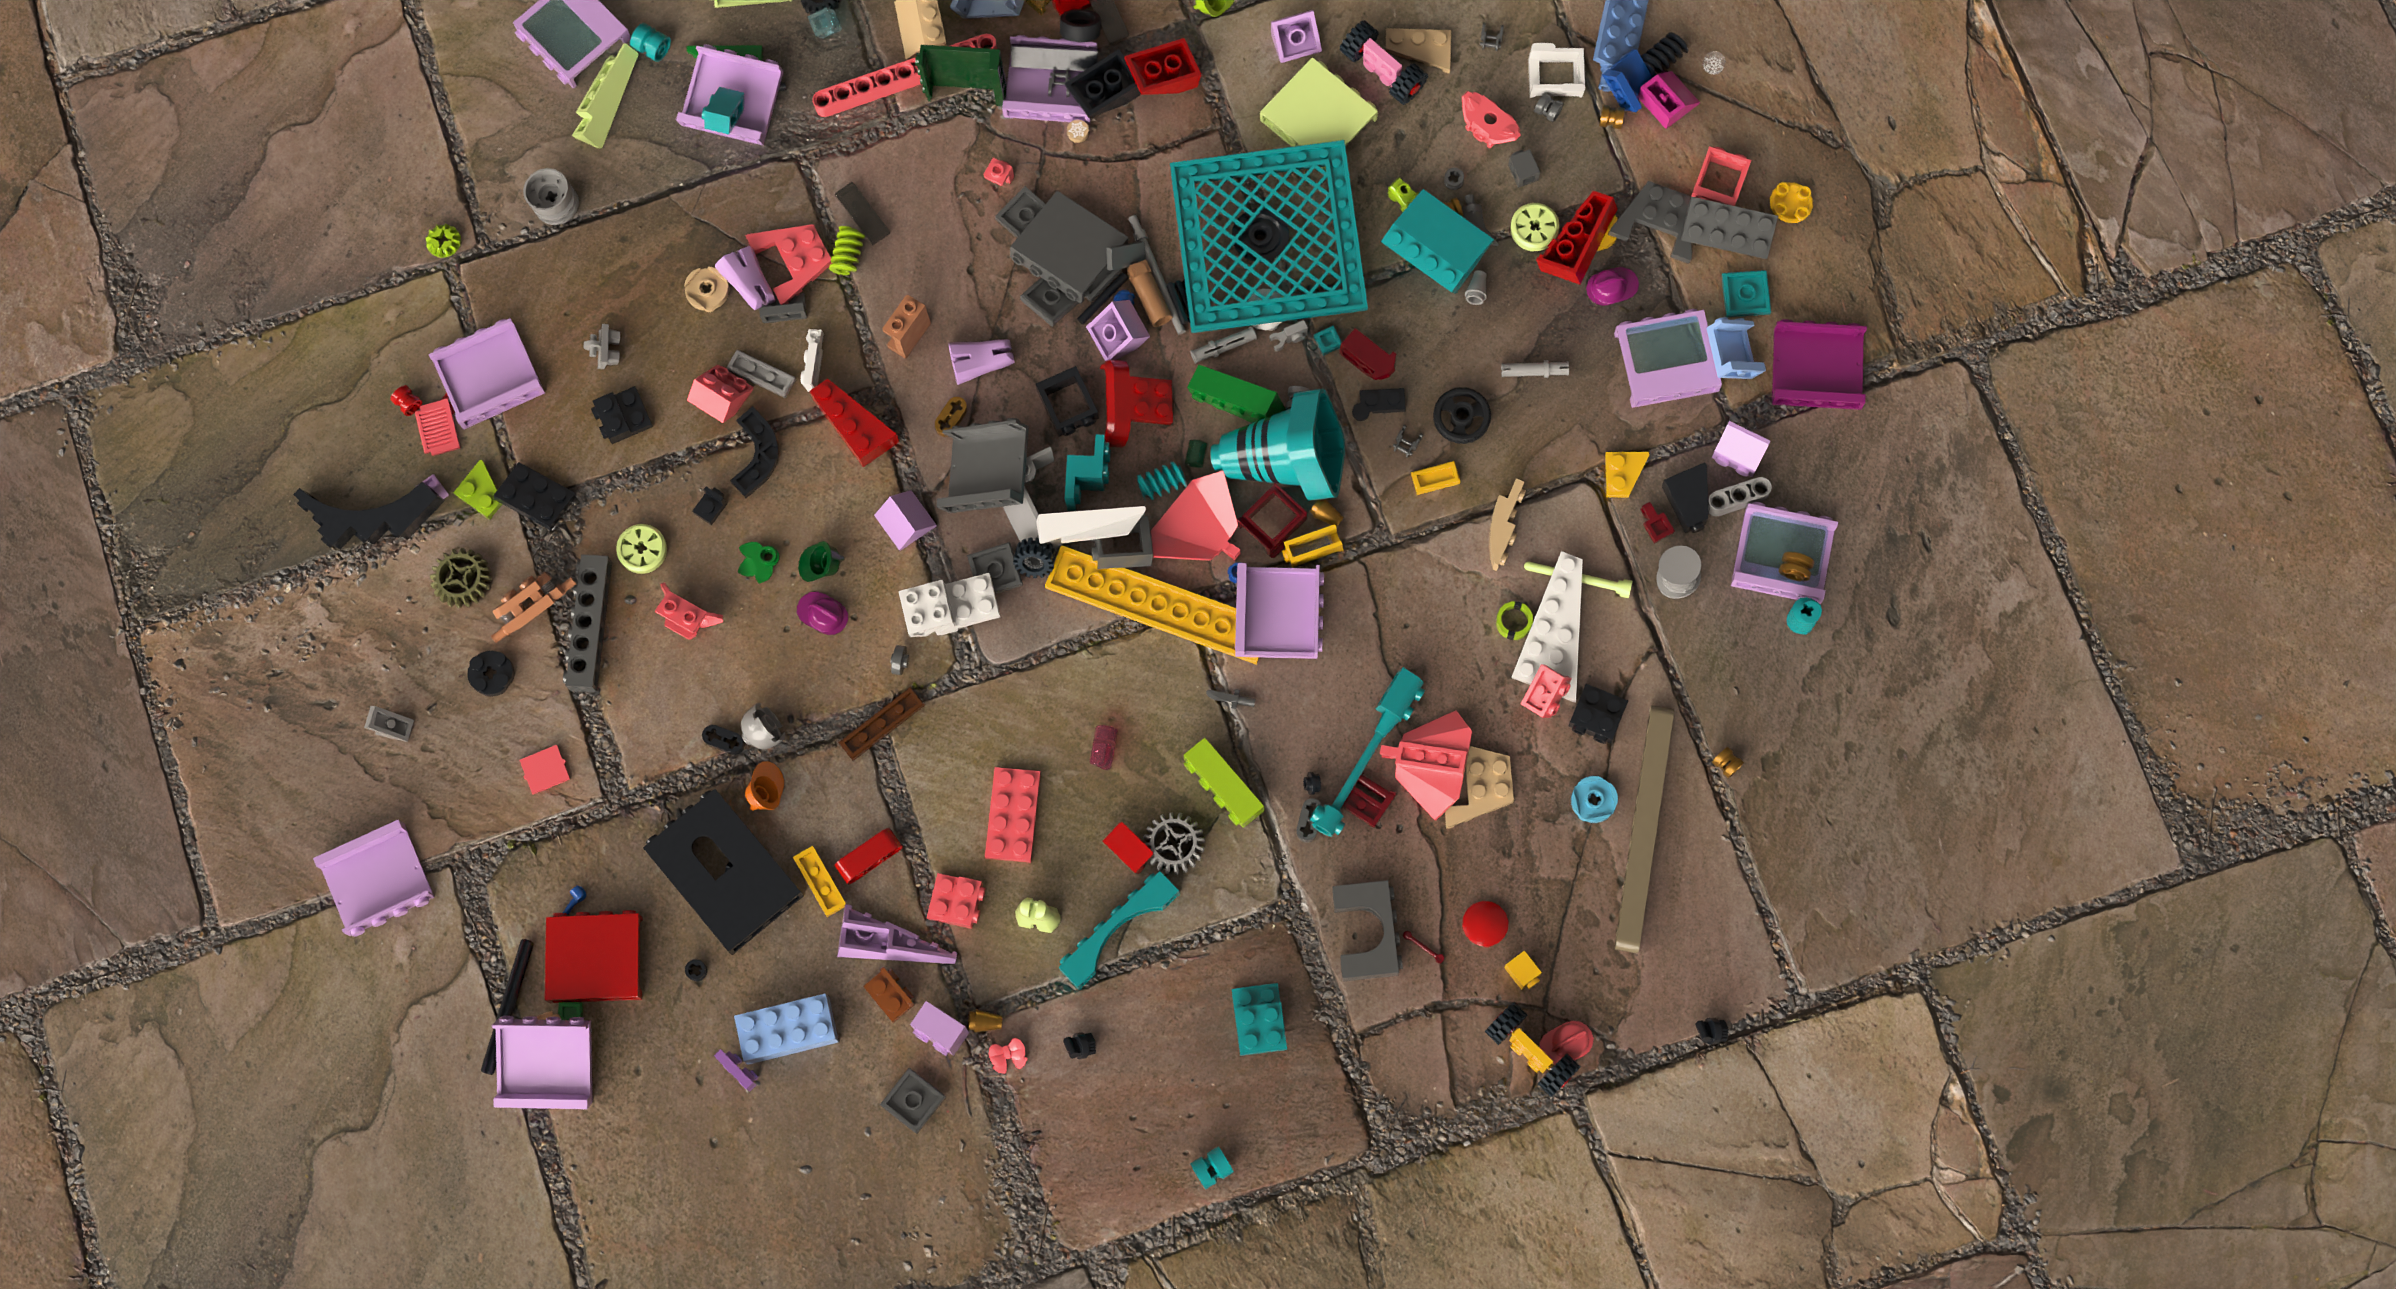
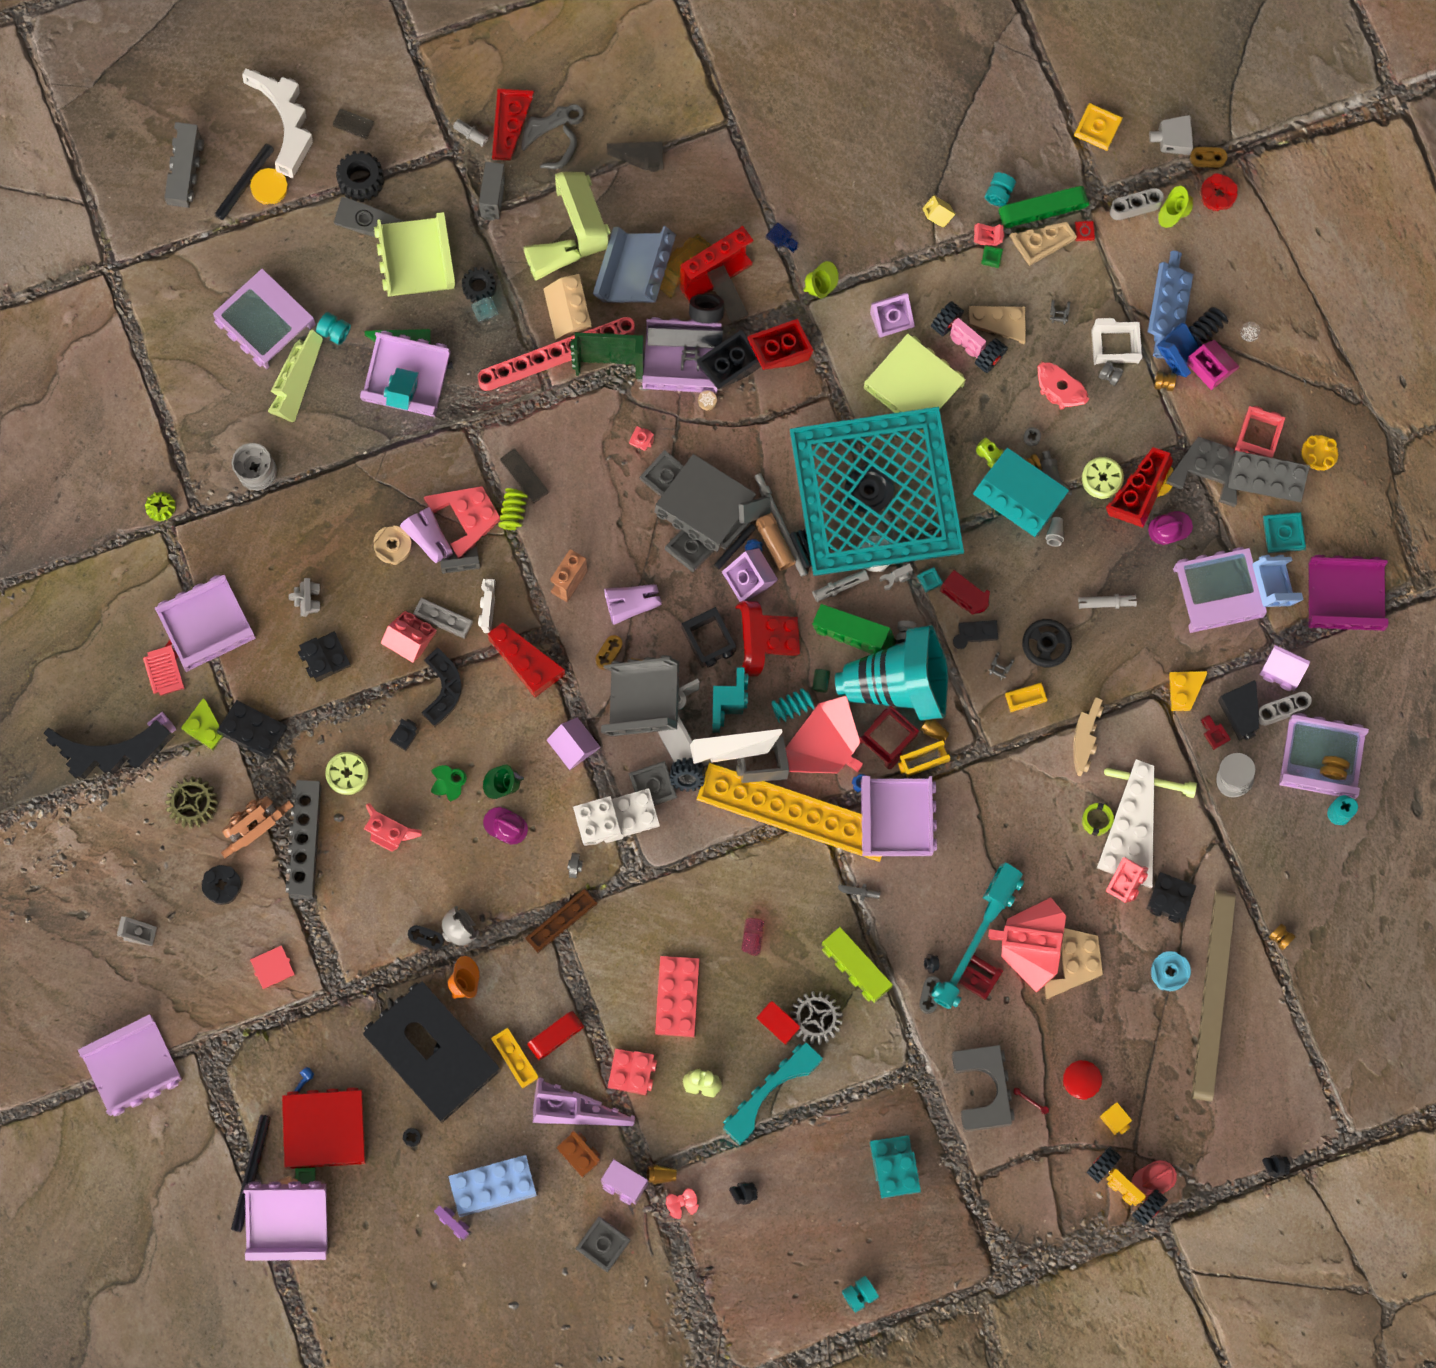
camera: 10 degrees left, 0 degrees up
(406, 400) = (136, 648): red wheel -> none
(1523, 168) = (1091, 426): dark grey brick -> none

